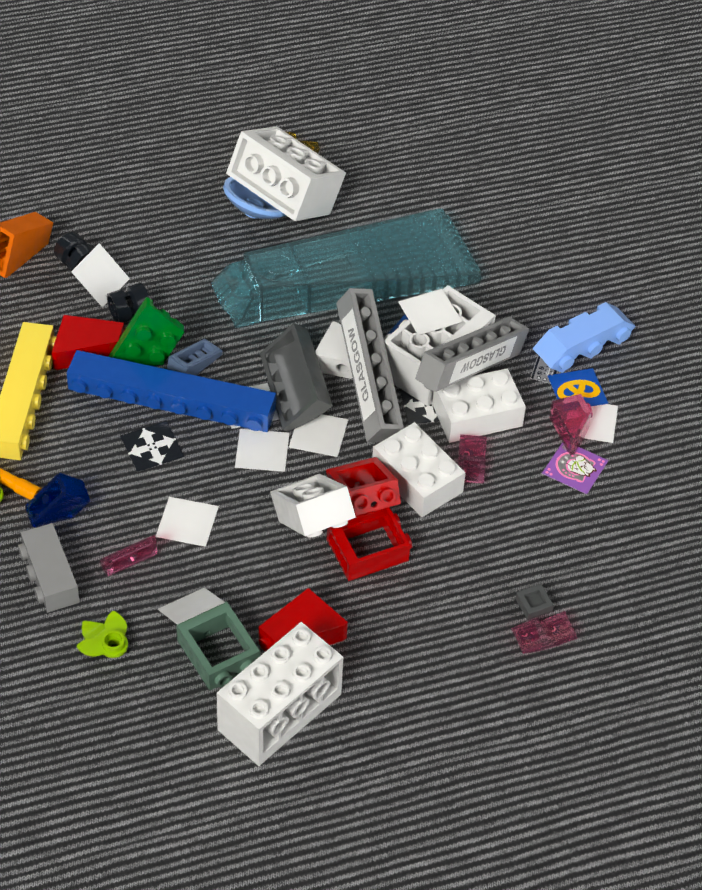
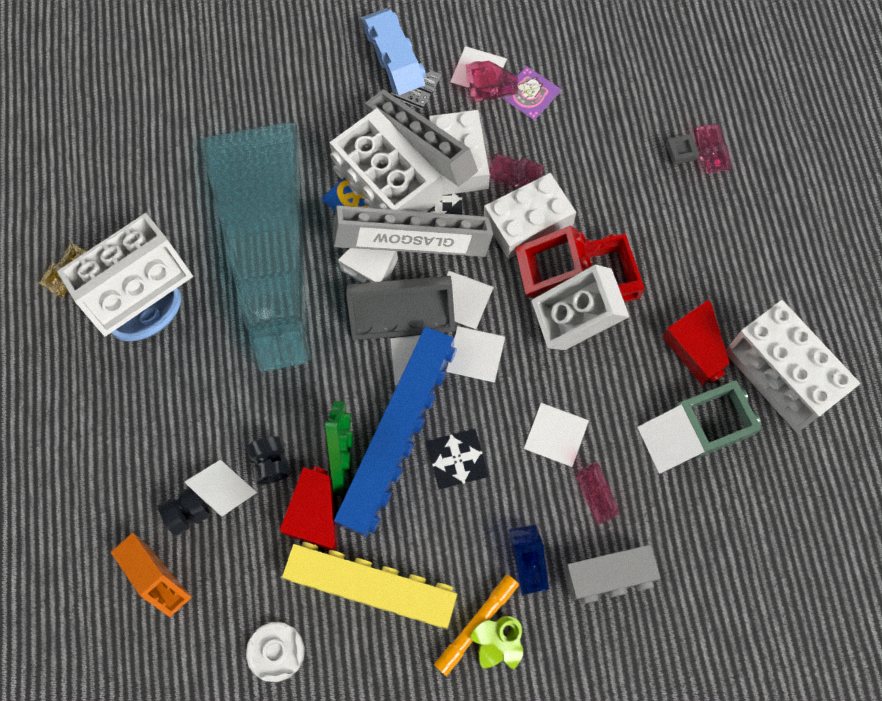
camera: 75 degrees left, 20 degrees up
(101, 636) = (690, 528): lime plate -> none
(186, 362) = (361, 417): sand blue slope -> none
(430, 311) = (363, 163): white sticker -> none
(578, 382) = (443, 73): blue sticker -> none

